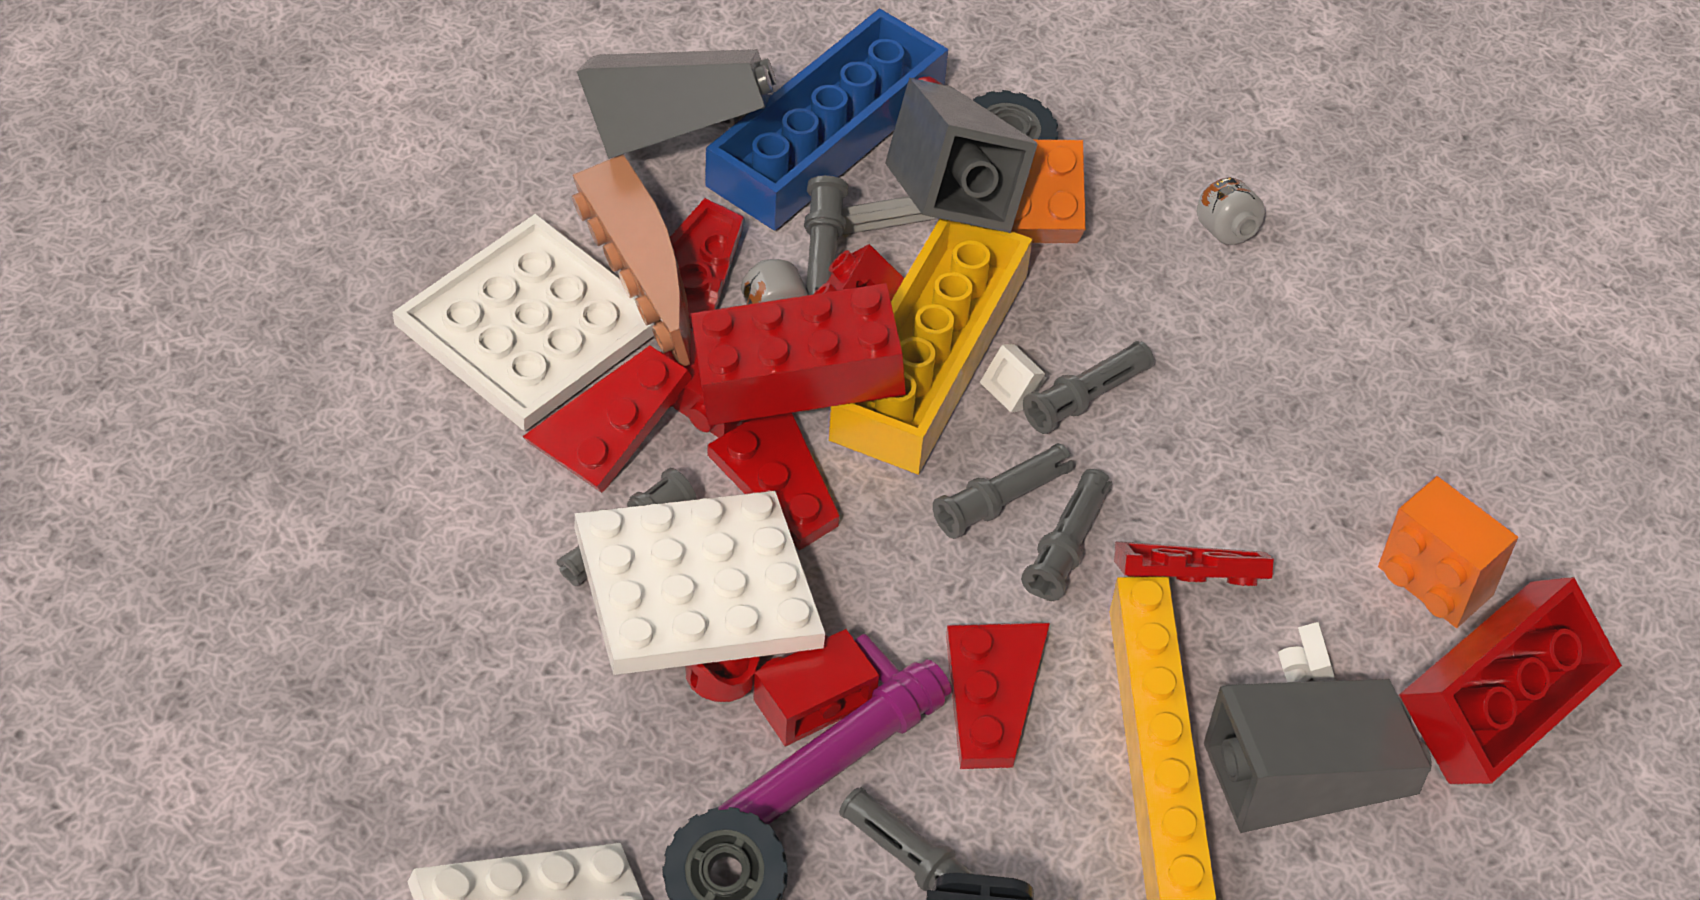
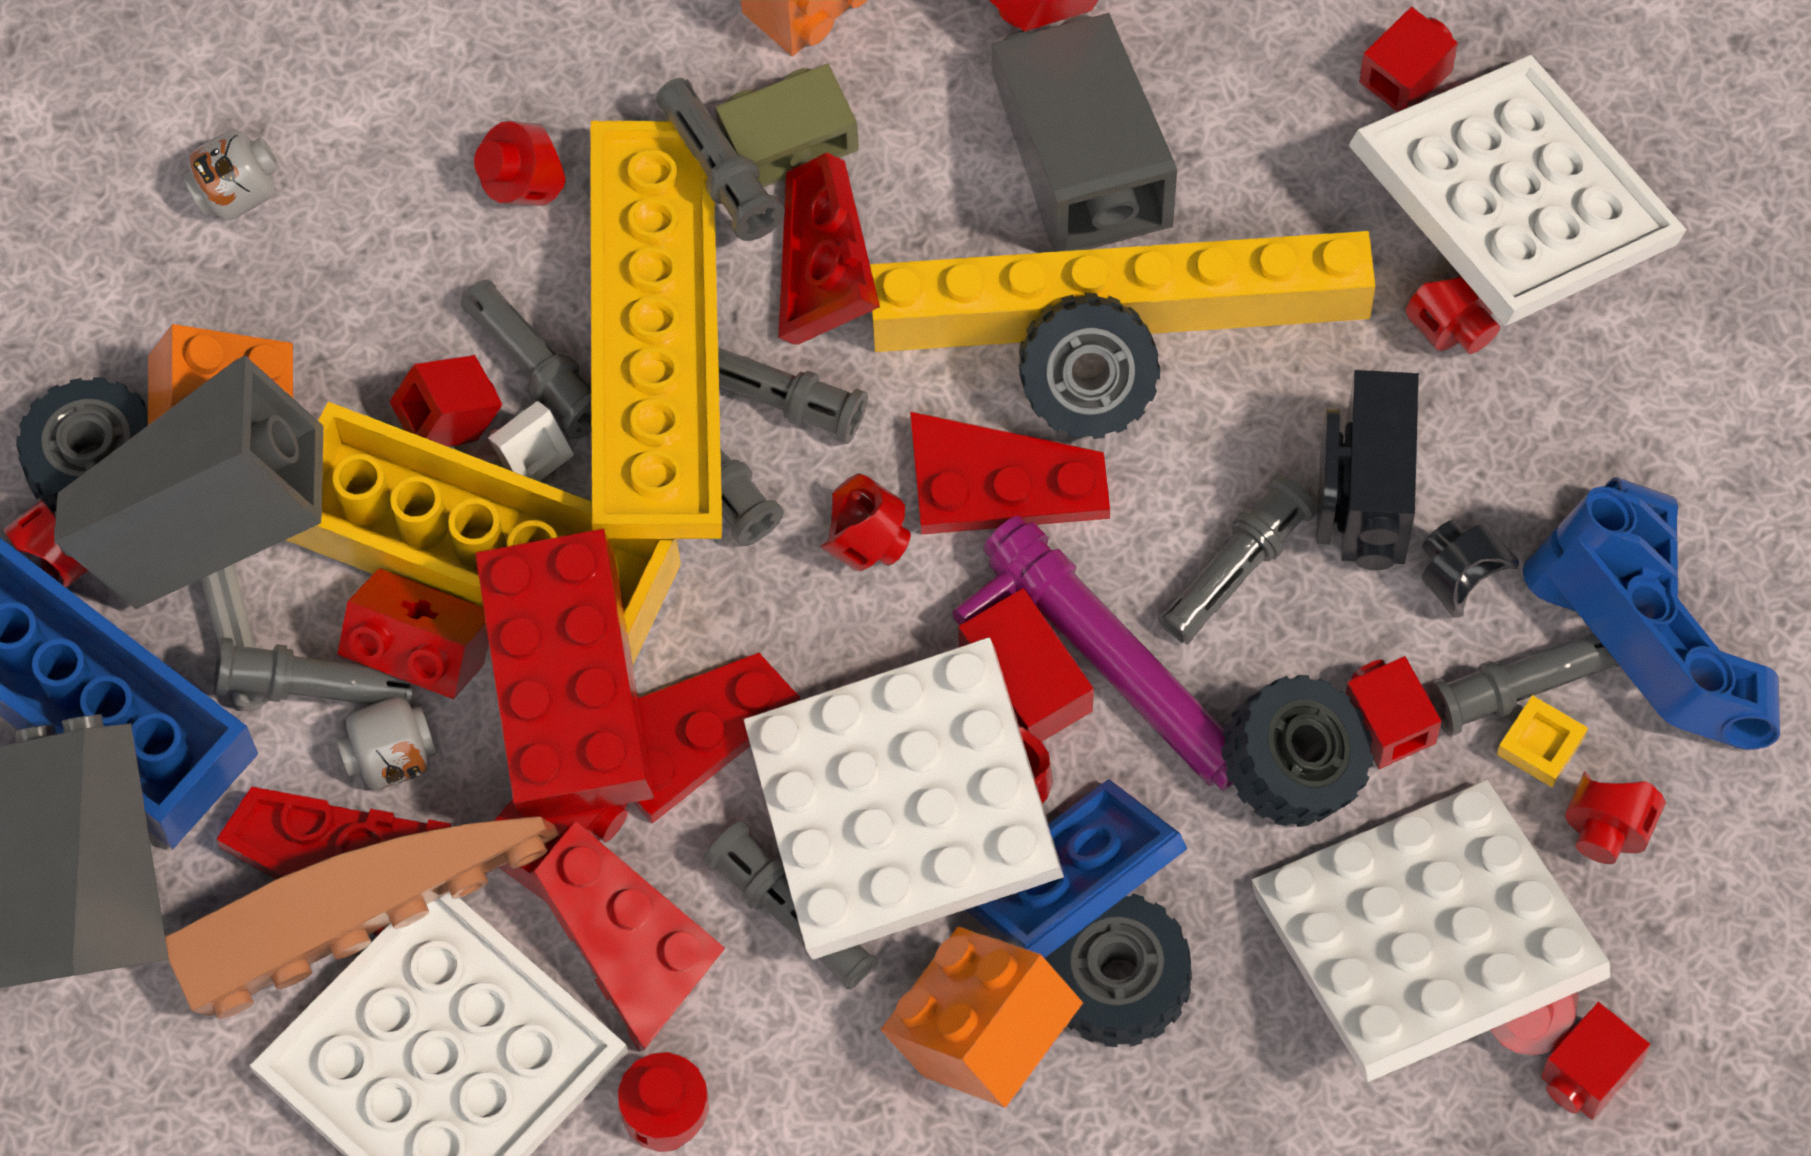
camera: 85 degrees left, 15 degrees up
(480, 443) = (663, 1101): none -> red piece
(508, 623) = (981, 1016): none -> orange brick
(556, 765) = (1147, 999): none -> wheel
(633, 709) = (1105, 852): none -> blue tile
(941, 585) = (865, 527): none -> red piece
(1044, 324) = (446, 401): none -> red brick
(1084, 733) = (1096, 403): none -> black wheel
(1105, 437) = (653, 337): none -> yellow plate
(1243, 492) = (730, 177): none -> dark grey pin
(1251, 371) = (519, 165): none -> red piece
(1305, 546) = (790, 122): none -> olive brick
(1307, 662) = (951, 127): white tile -> none

